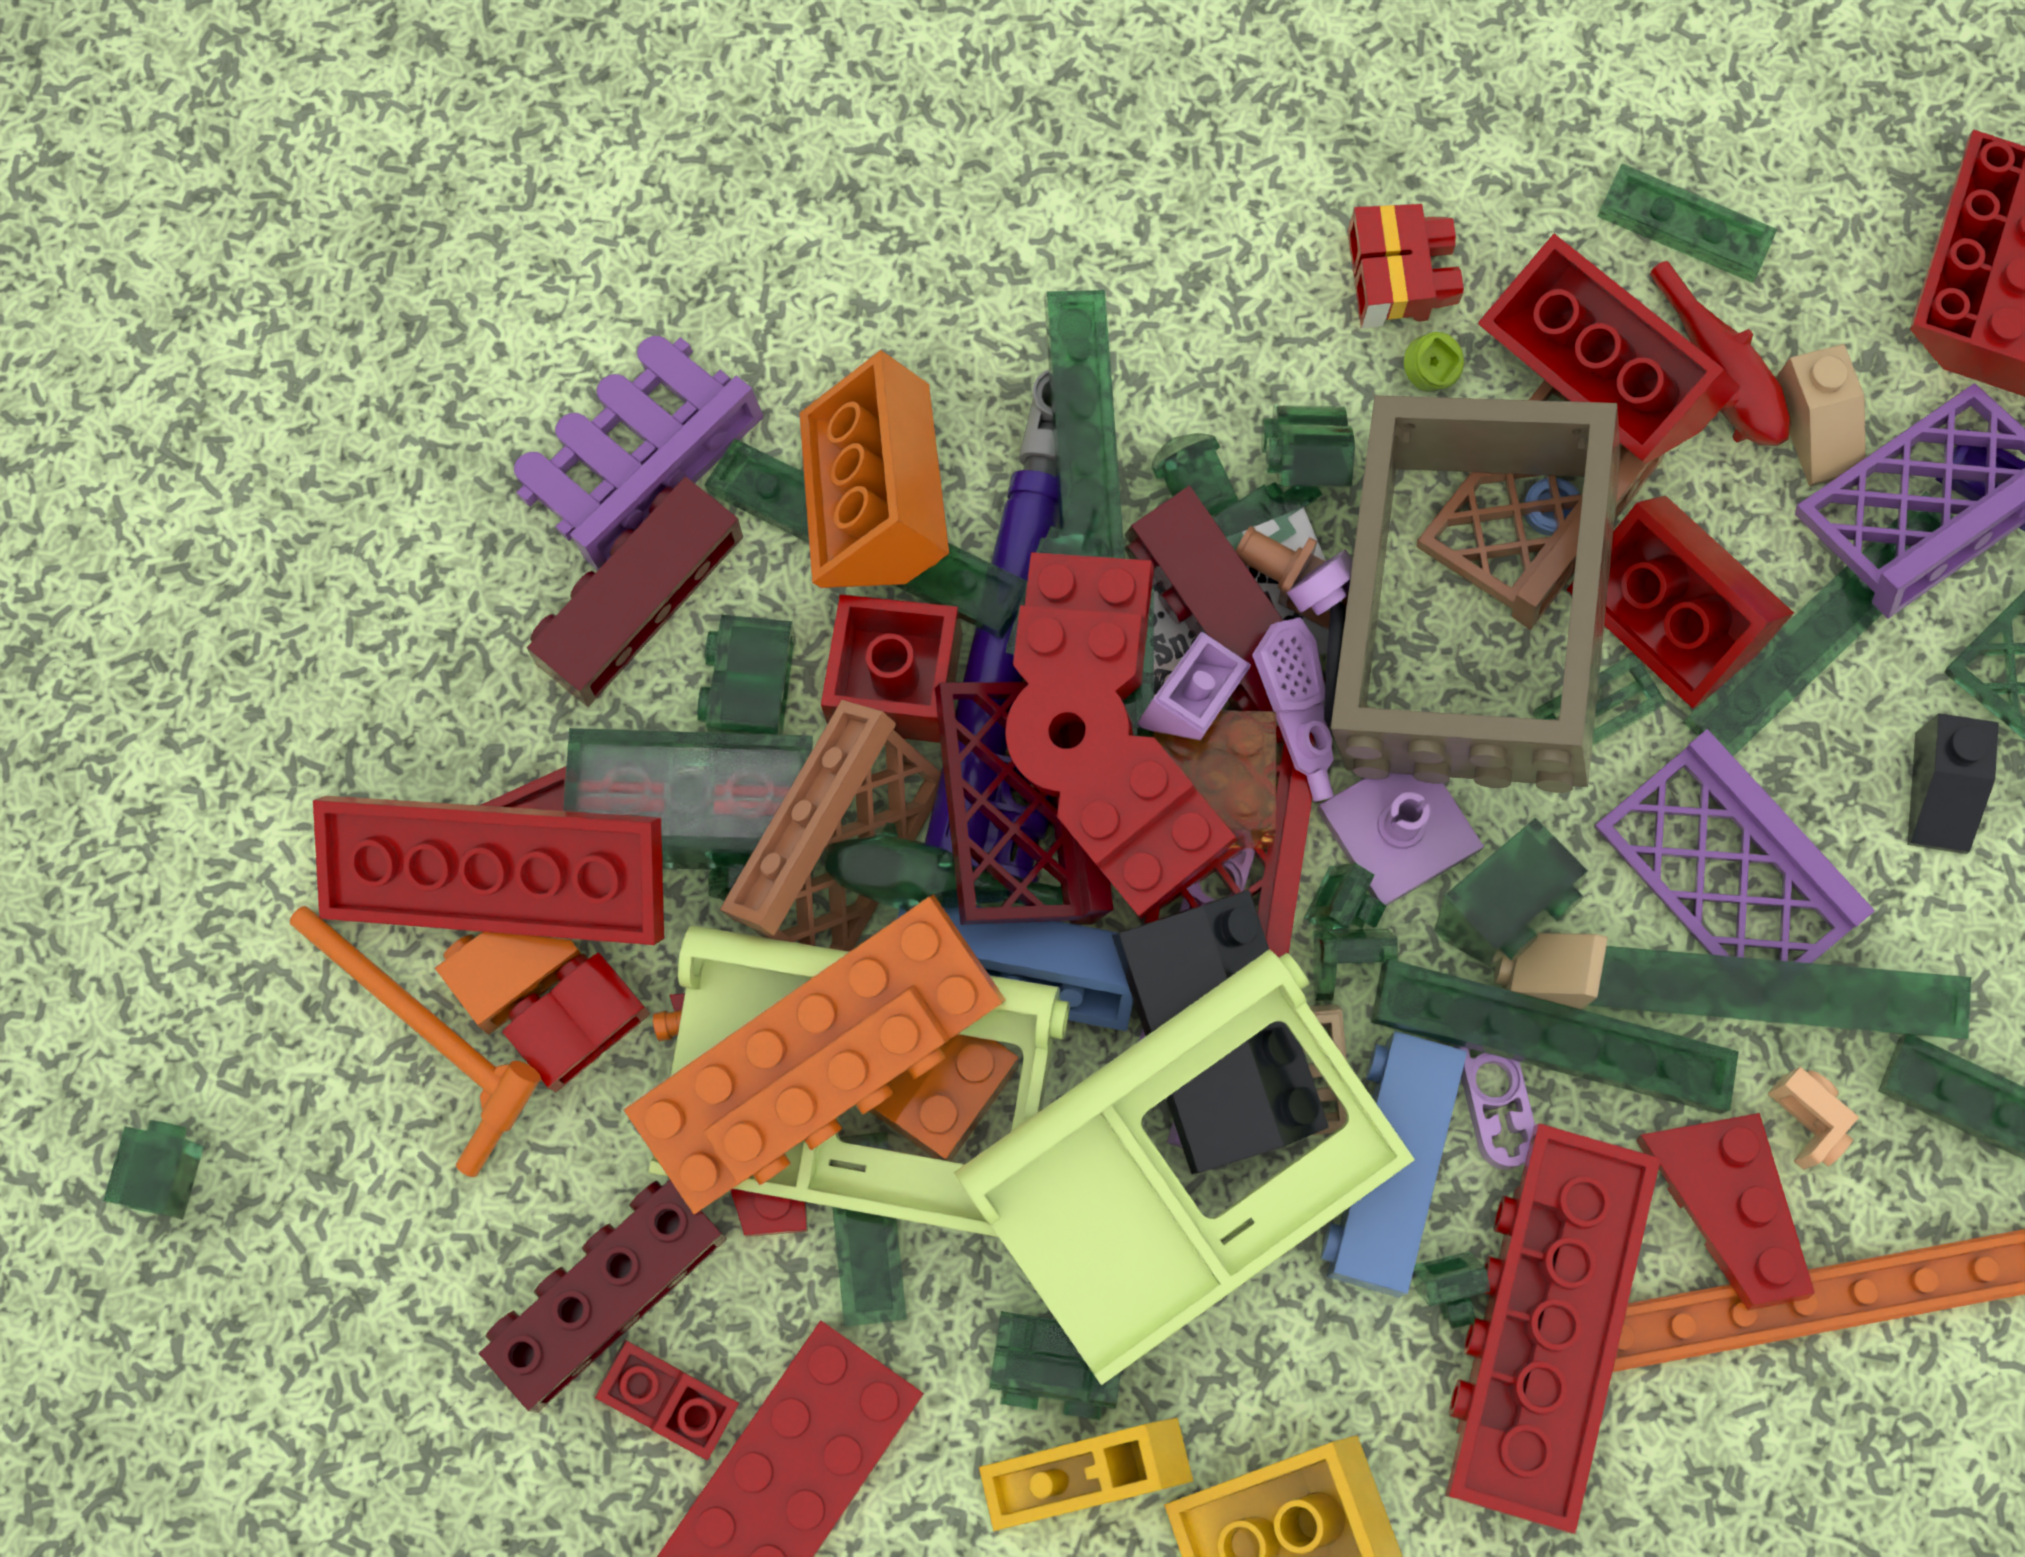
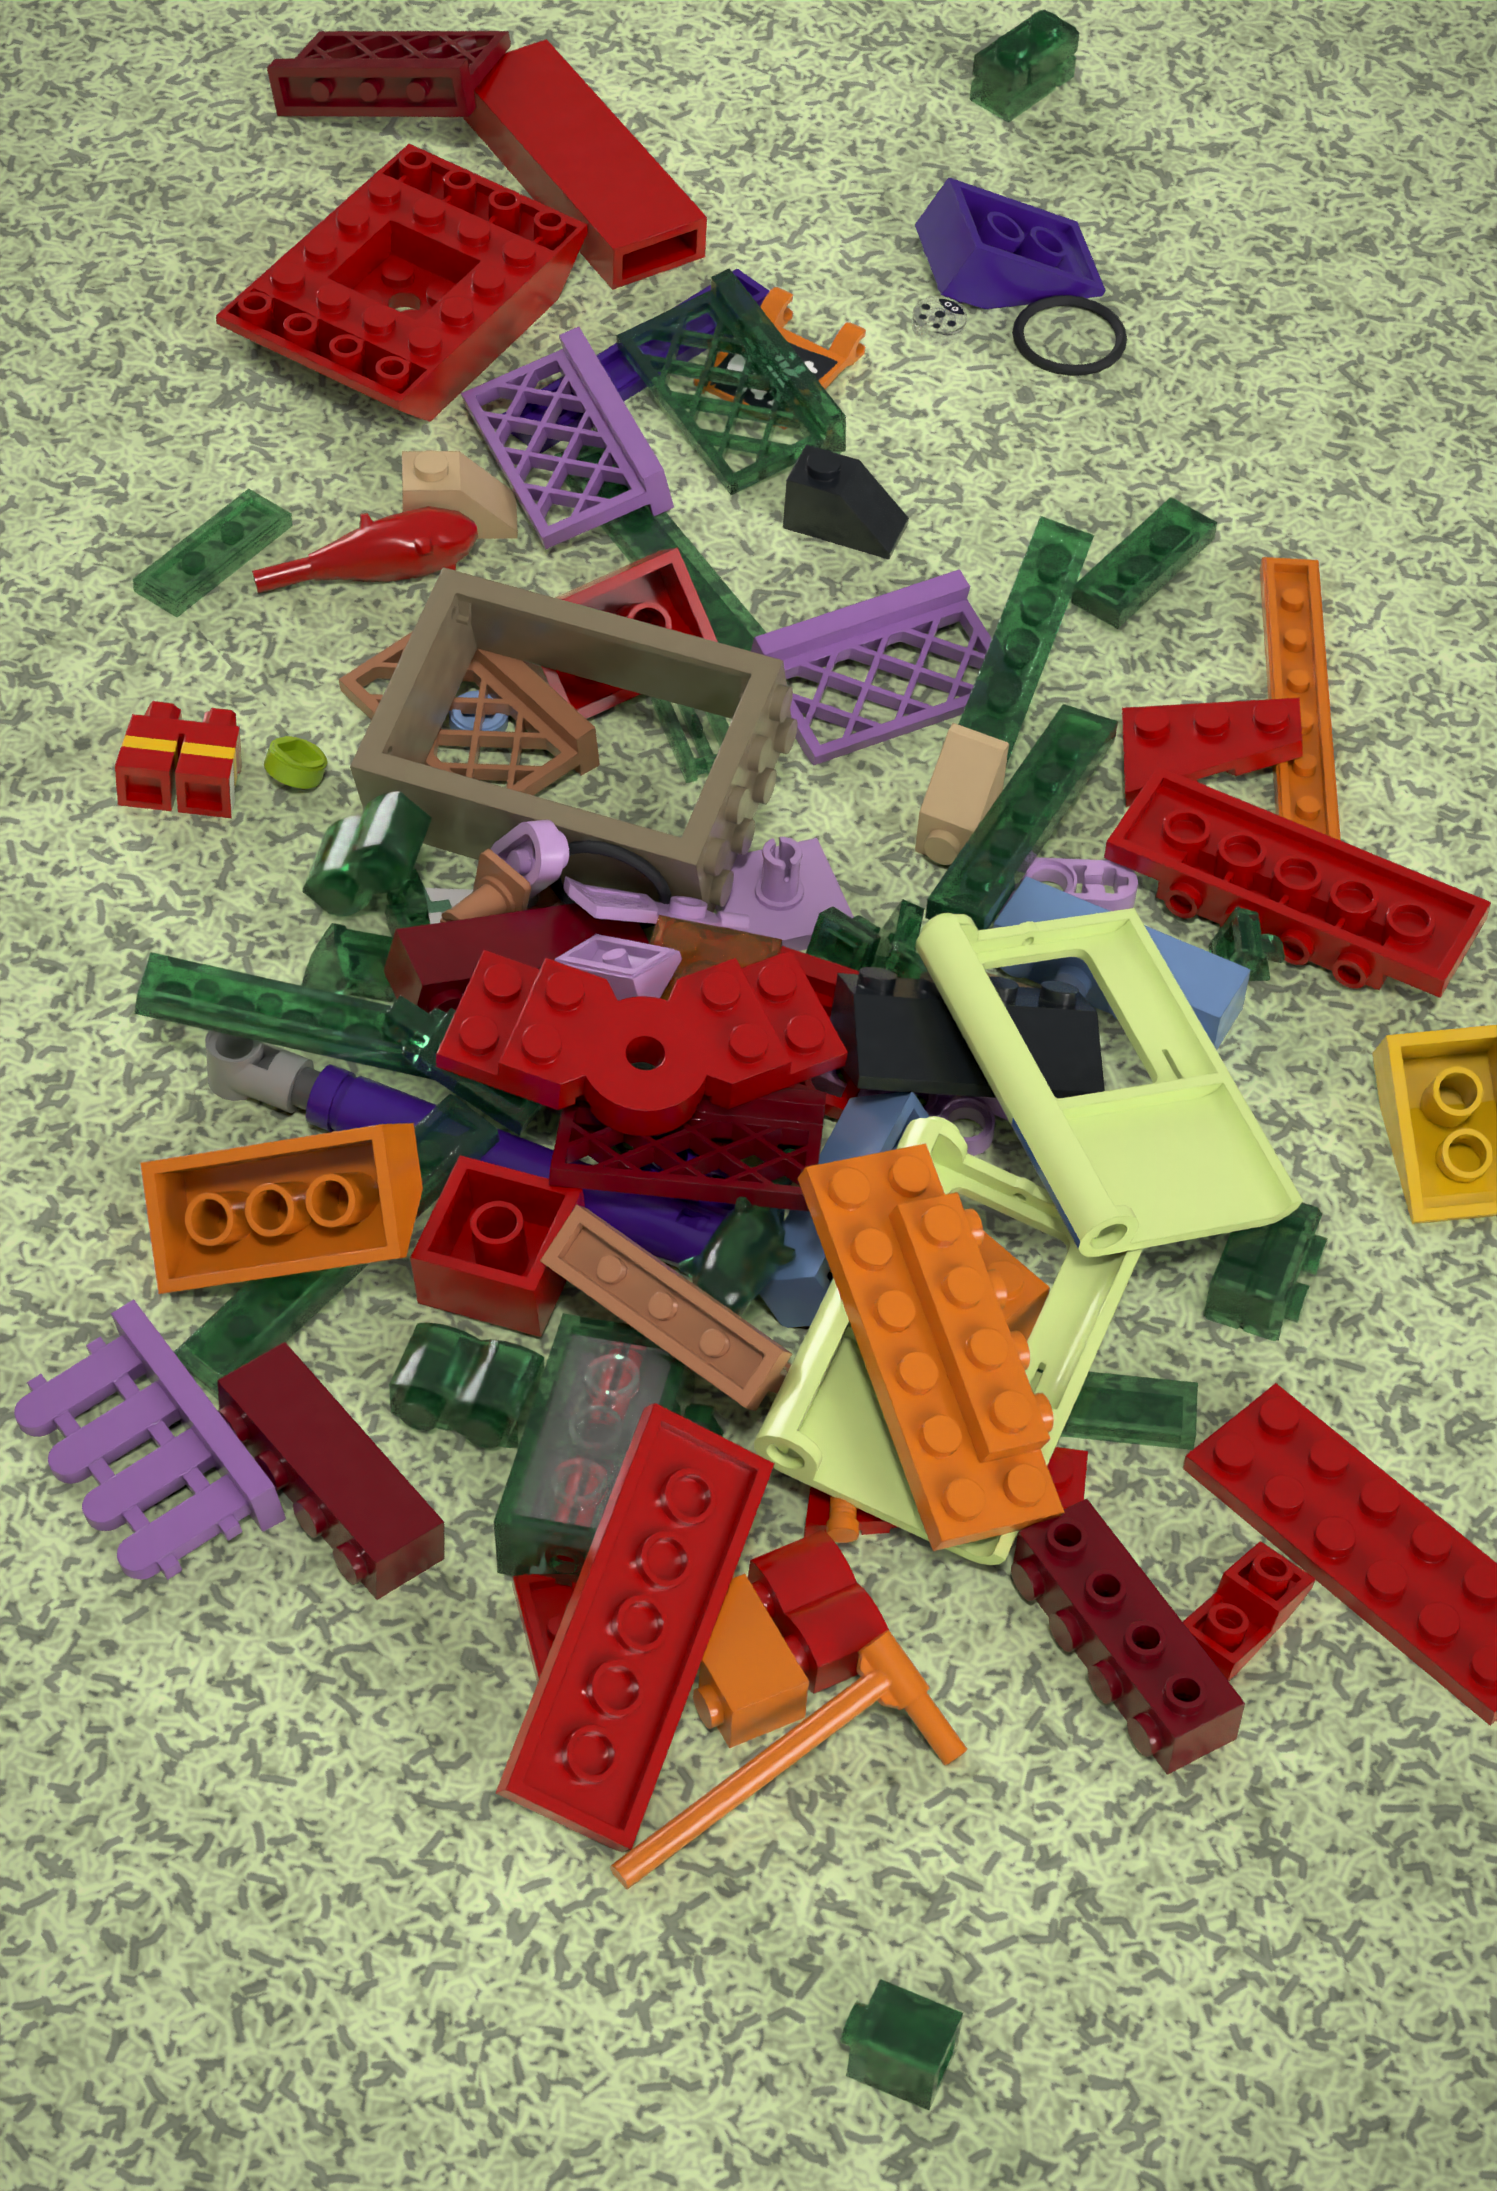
camera: 80 degrees left, 25 degrees down
(1086, 1473) = (1379, 1261): yellow slope -> none
(1510, 896) = (885, 805): clear green slope -> none
(1608, 348) = (336, 611): red slope -> none
(1814, 1104) = (1133, 663): light nougat bracket -> none

